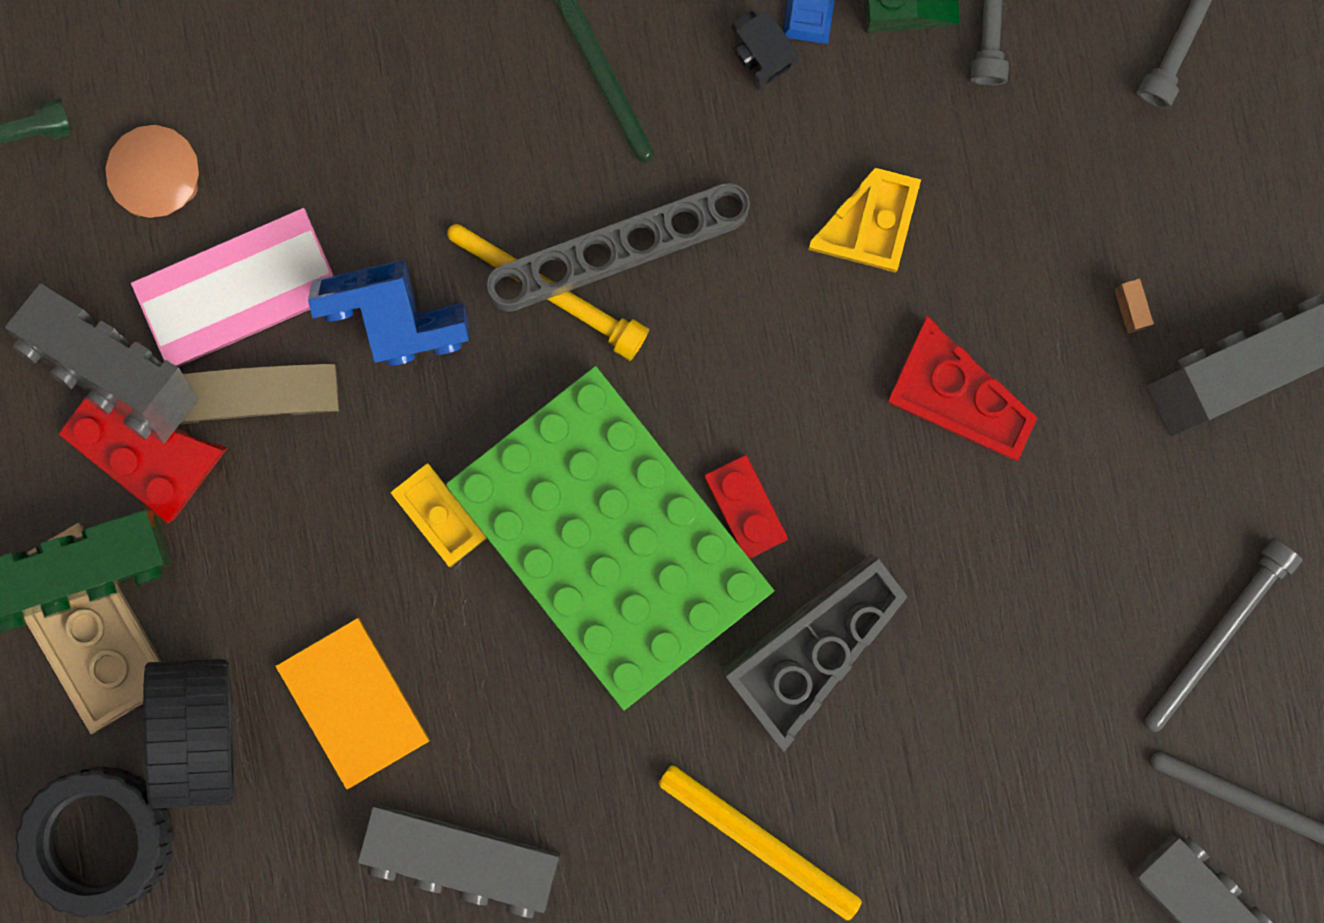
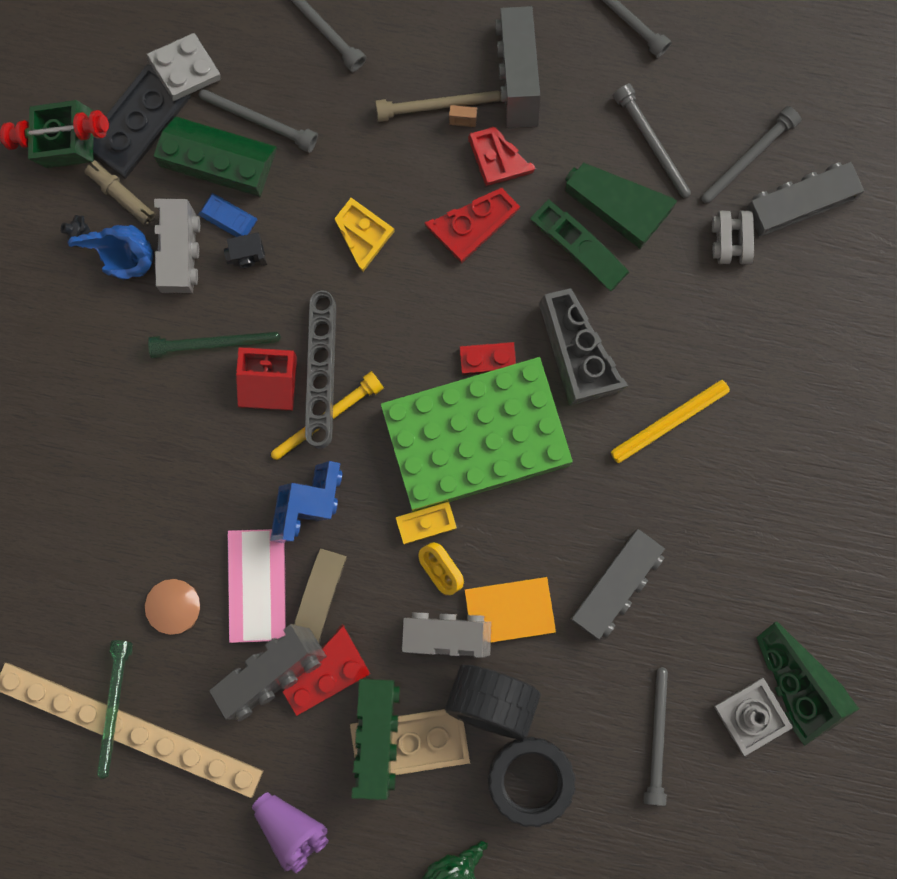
camera: 70 degrees left, 5 degrees down
(270, 620) = (447, 635): none -> light grey wedge
(375, 568) = (441, 568): none -> yellow plate
(566, 167) = (266, 378): none -> red slope
(991, 583) = (580, 245): none -> dark green slope
(1087, 390) = (497, 157): none -> red wing
(1090, 623) = (619, 202): none -> dark green slope
(1094, 179) = (387, 110): none -> dark tan piece
(1121, 806) = (723, 248): none -> light grey brick

